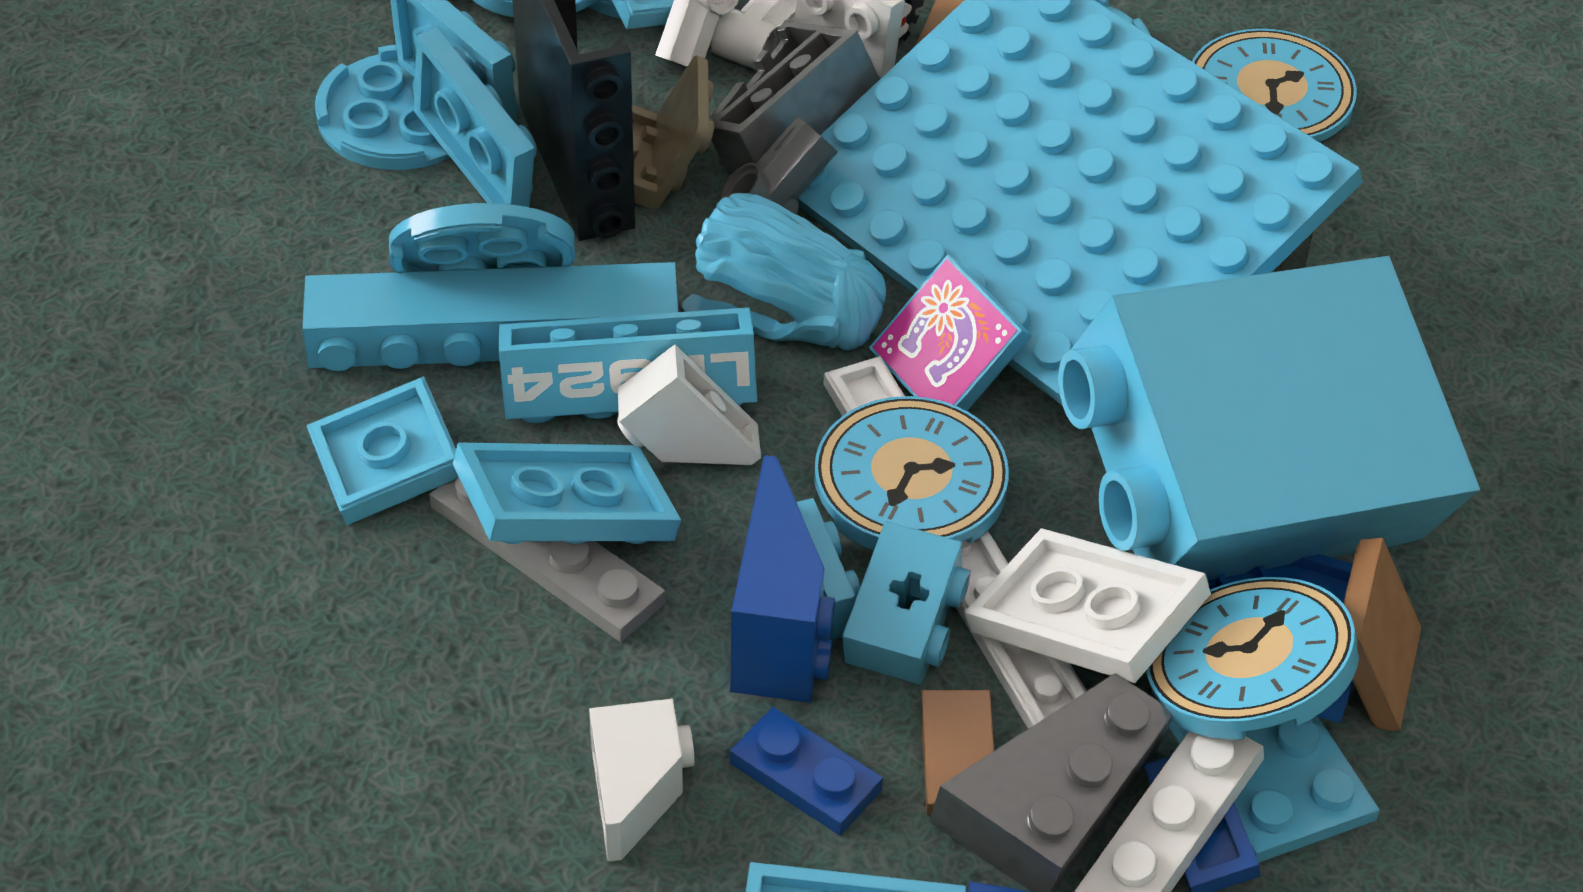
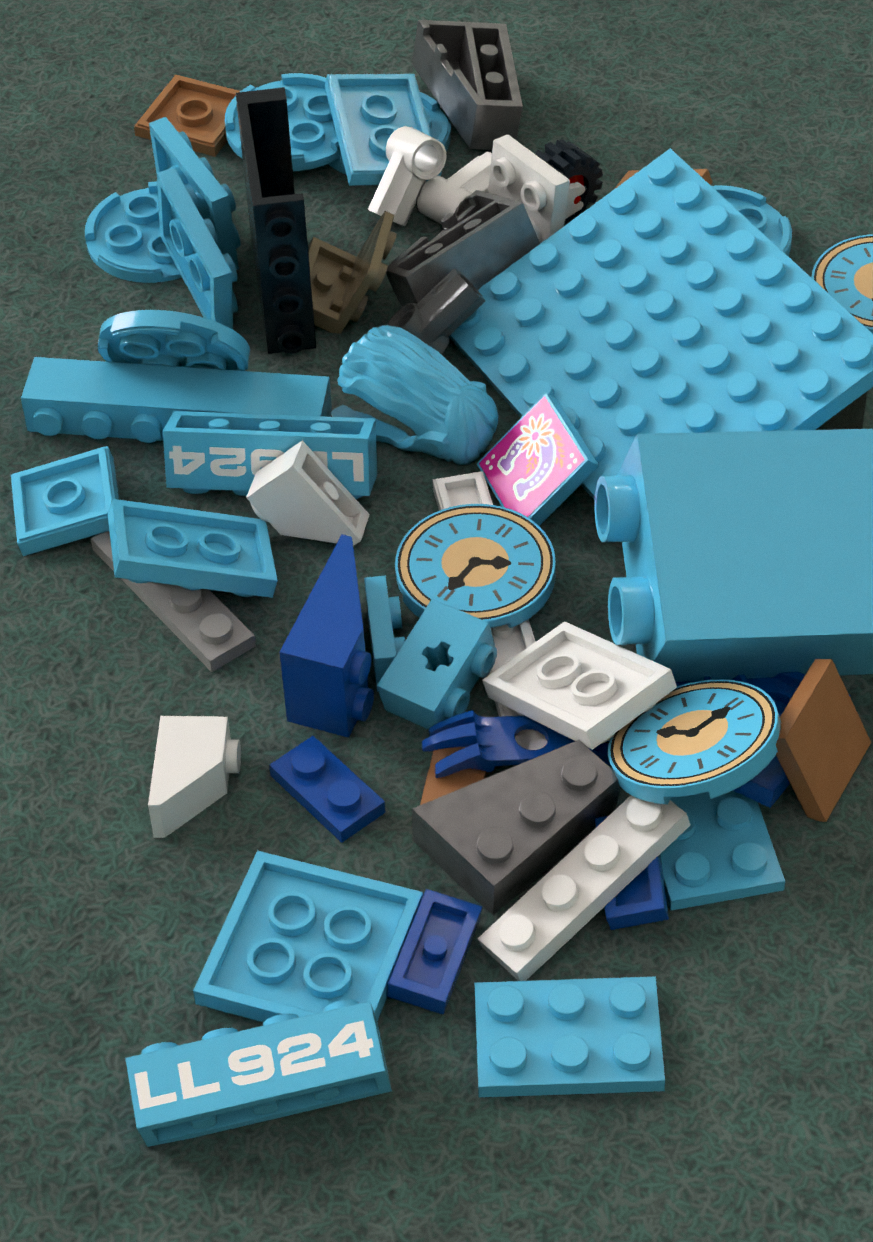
camera: 15 degrees right, 0 degrees up
(998, 688) = (490, 742): none -> blue piece

